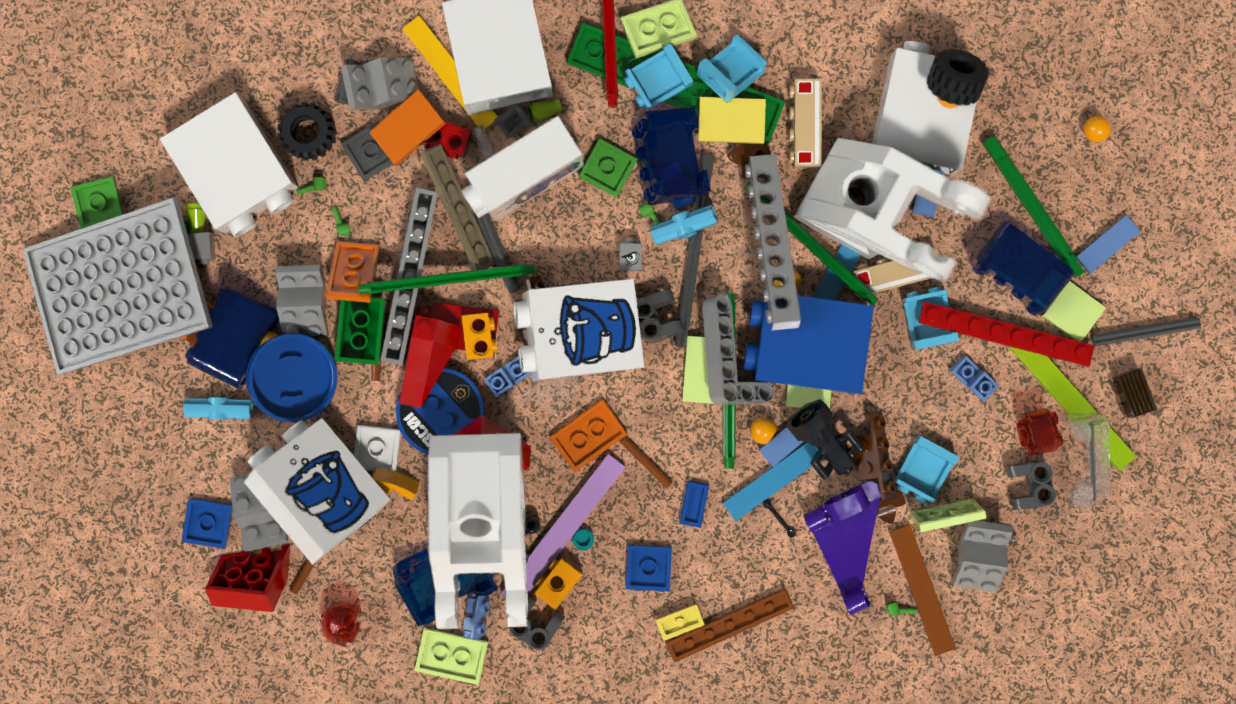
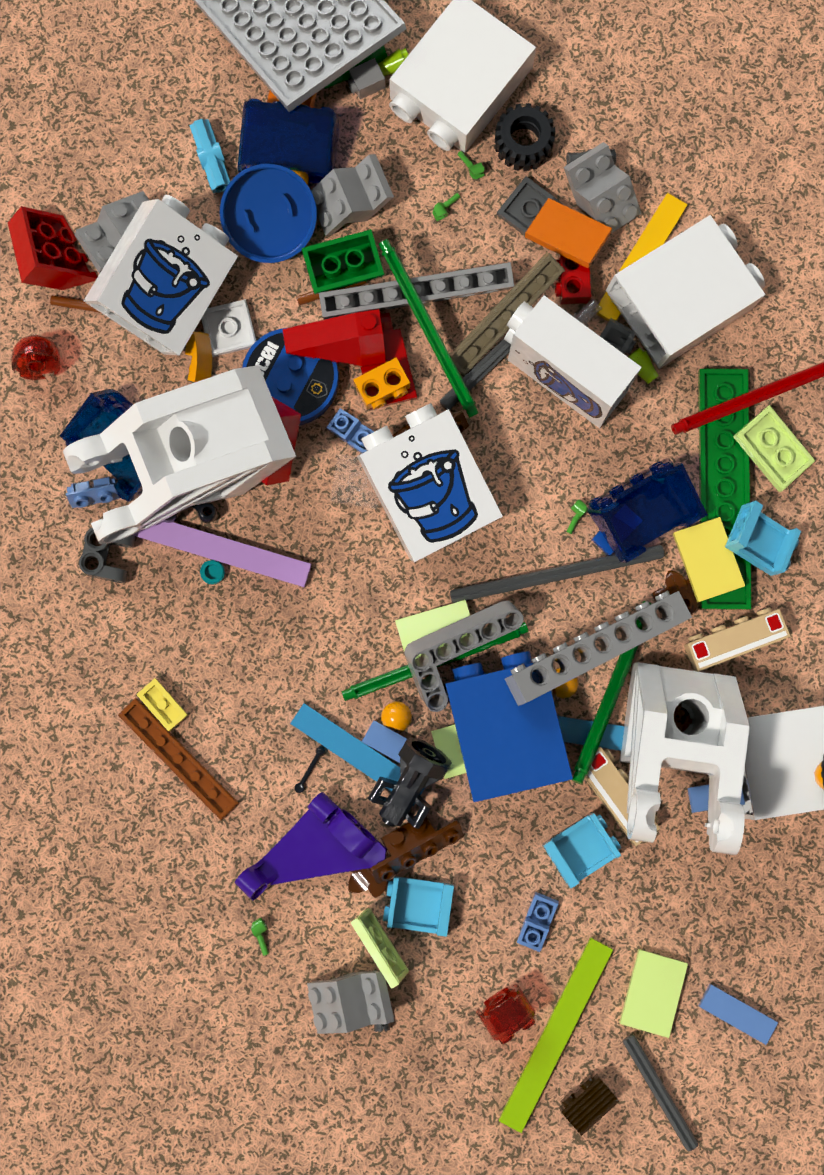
camera: 70 degrees right, 5 degrees down
(207, 523) = (89, 188): blue tile -> none
(351, 266) = (406, 230): orange tile -> none
(451, 656) = (42, 482): yellowish green tile -> none
(552, 595) = (143, 556): light orange brick -> none
(588, 435) = (322, 537): orange tile -> none
(608, 168) = (608, 453): bright green tile -> none
(630, 256) = (525, 509): light grey brick -> none
(648, 464) = (317, 607): dark orange bar -> none
(648, 568) = (207, 651): blue tile -> none
(658, 78) = (721, 467): medium azure panel -> none
(663, 331) = (487, 552): dark grey piece -> none
(684, 225) = (579, 551): medium azure piece -> none
(694, 504) = (291, 673): blue tile -> none
(922, 590) = (290, 951): dark orange tile -> none
(1006, 334) = (598, 939): red plate -> none
(1023, 268) = (676, 929): clear blue windscreen -> none
(1032, 204) = (747, 916): green piece -> none
(1036, 485) = (448, 1032): dark grey piece -> none
(1097, 486) = (531, 1075): clear windscreen -> none

